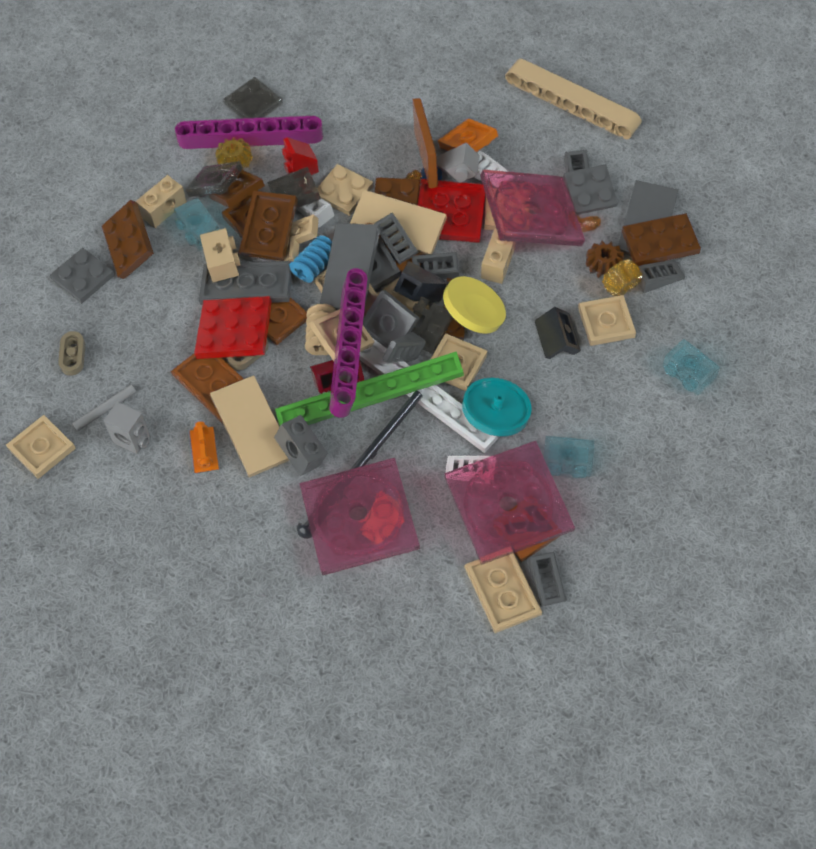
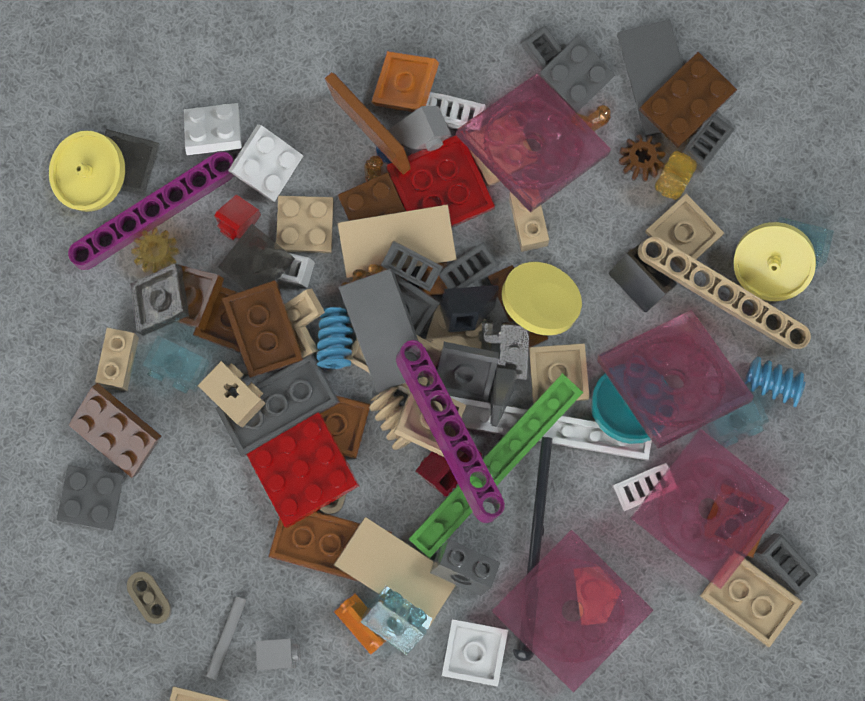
camera: 30 degrees left, 20 degrees up
(224, 90) = (86, 171): none -> light yellow piece
(227, 452) = (396, 620): none -> clear light blue brick
(269, 511) = (475, 652): none -> white plate
(321, 104) = (212, 129): none -> white plate
(342, 139) = (265, 163): none -> white plate
(557, 388) = (678, 349): none -> clear pink piece
(611, 378) = (737, 296): none -> tan beam
(613, 447) = (775, 380): none -> dark azure piece
(662, 365) = (774, 261): none -> light yellow piece

